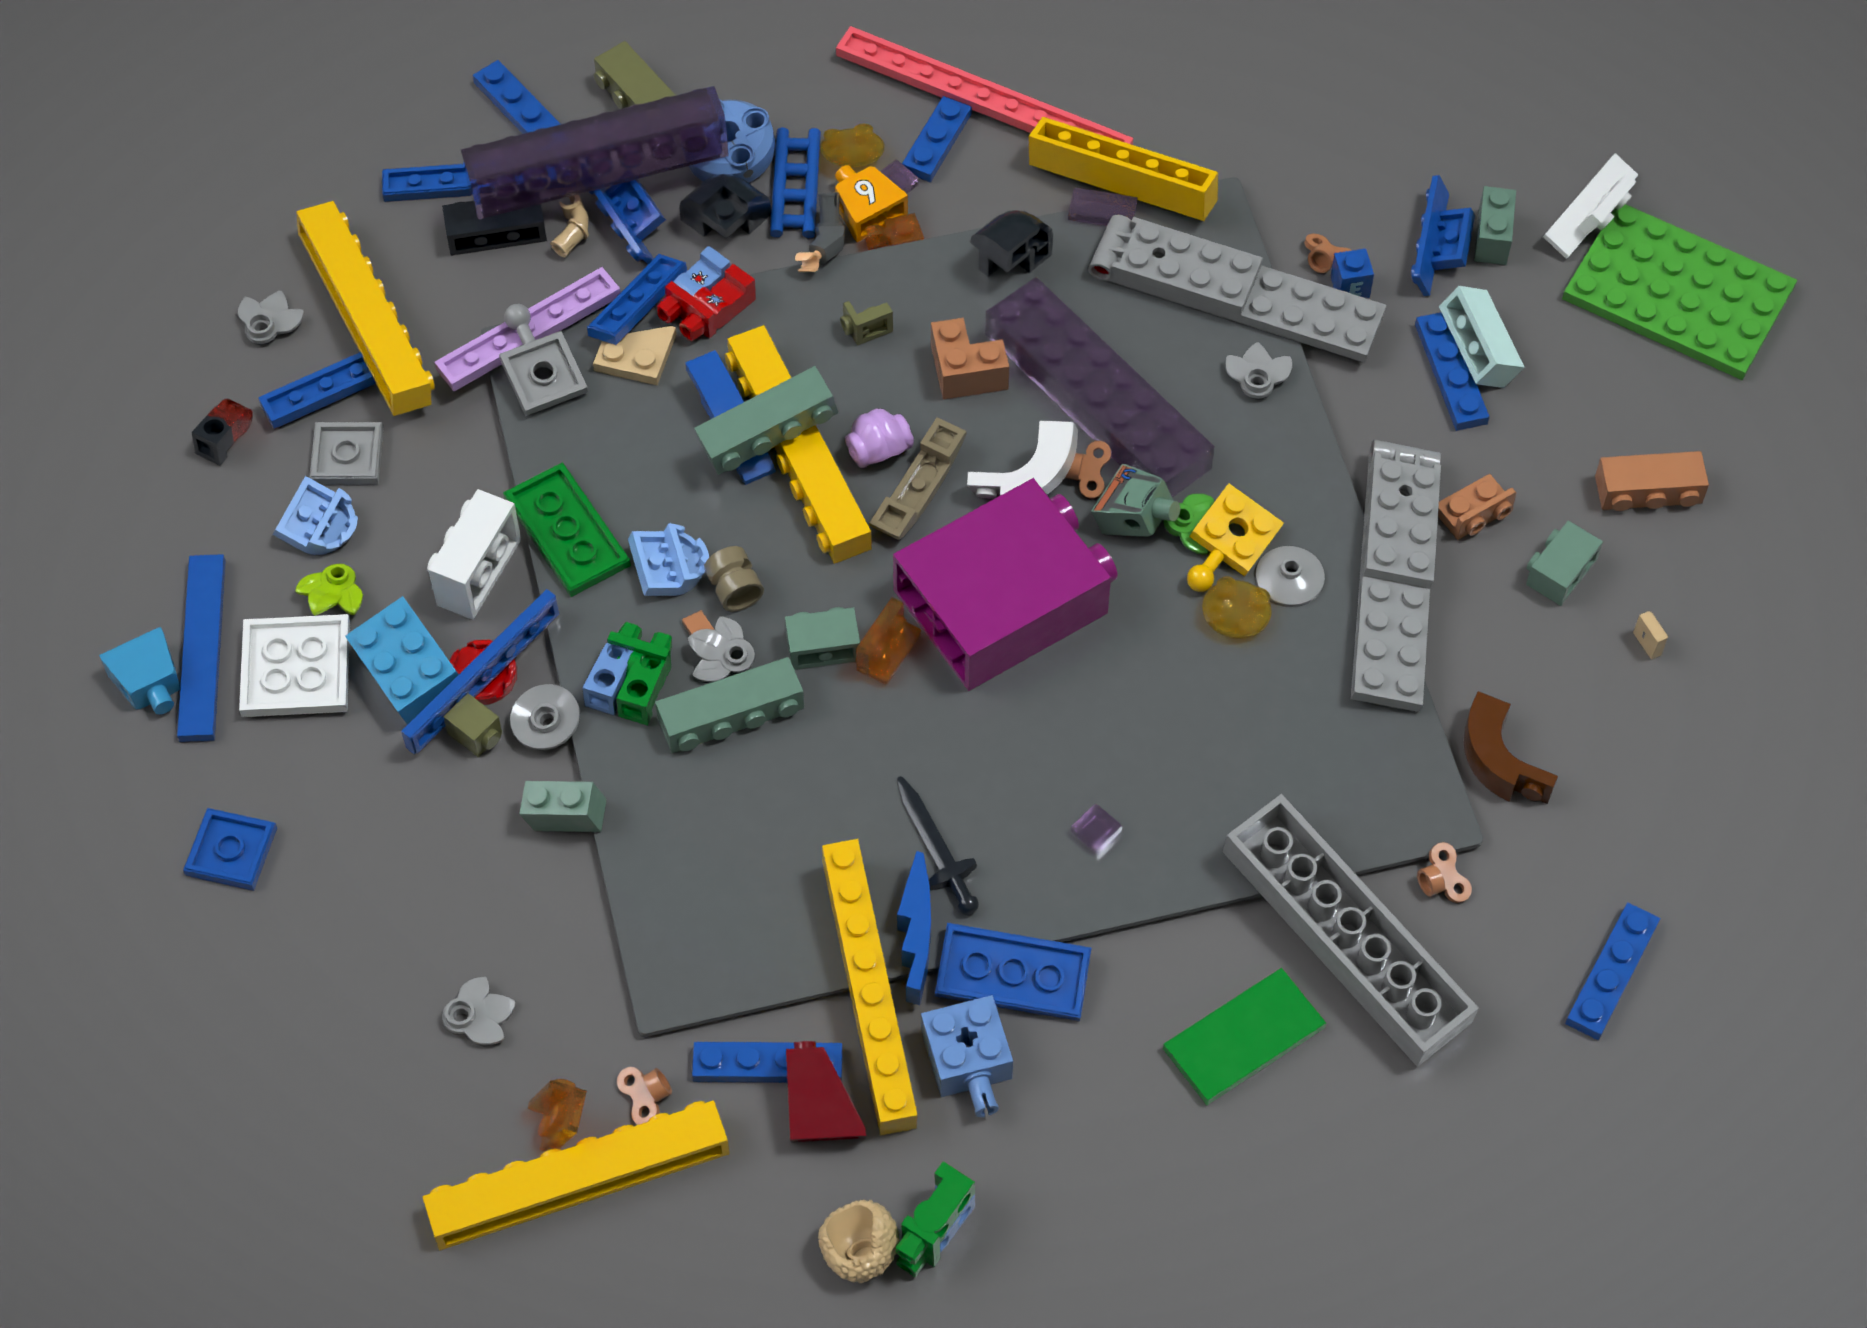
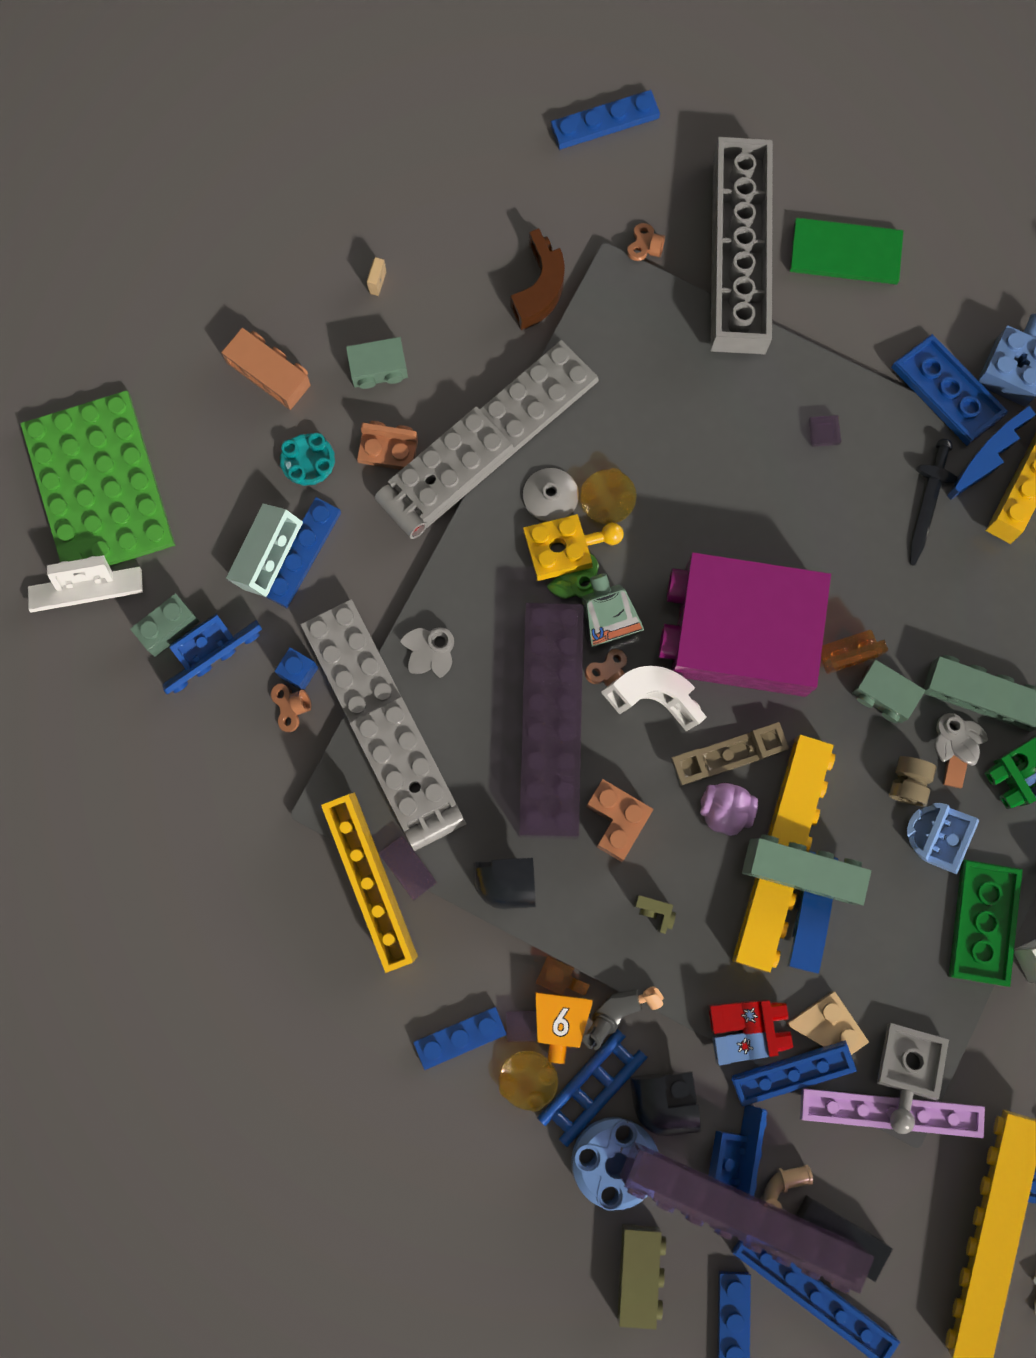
camera: 140 degrees left, 20 degrees up
(957, 84) = (398, 1048): coral plate -> none
(1532, 441) = (307, 459): none -> teal dish

